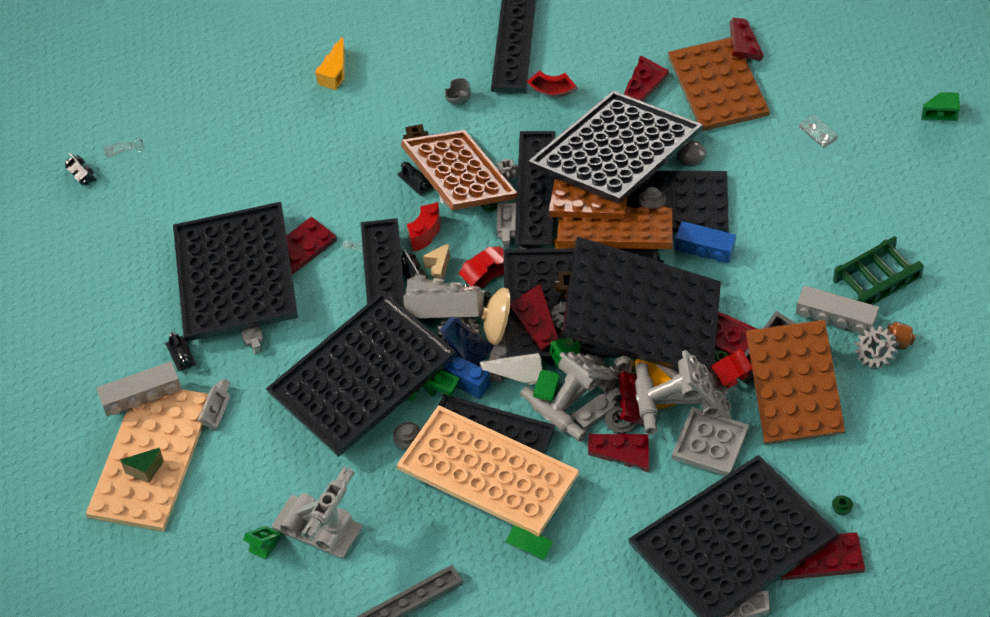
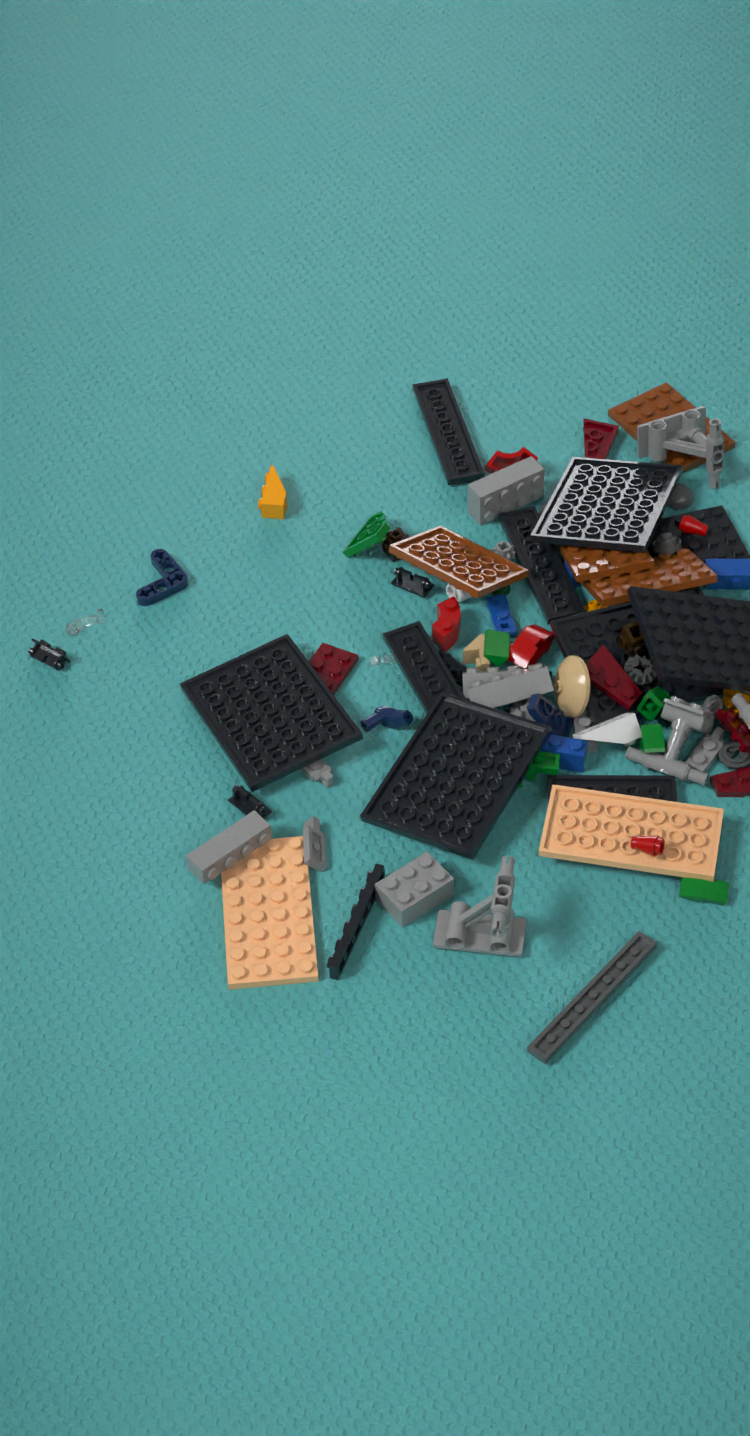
camera: 20 degrees left, 5 degrees down
(143, 465) = (271, 919): dark green slope -> none
(213, 123) = (173, 580): none -> dark blue beam
(213, 490) = (354, 926): none -> black plate
(262, 541) = (430, 962): green slope -> none
(278, 470) = (414, 889): none -> light grey brick
(333, 301) = (388, 717): none -> dark blue arm
(395, 124) = (371, 532): none -> green plate
(405, 434) = (529, 824): dark grey plate -> none
(453, 259) = (496, 646): none -> green slope
(458, 92) = (416, 491): dark grey hair -> none
(477, 230) = (501, 614): none -> blue plate
(493, 488) = (650, 845): none -> red cone
(506, 222) = (527, 602): light grey hinge -> none
(534, 110) = (505, 490): none -> light grey brick
(685, 186) = (692, 526): none -> red cone
(707, 90) = (685, 434): none -> light grey plate
(744, 40) = (678, 382): dark red wing -> none

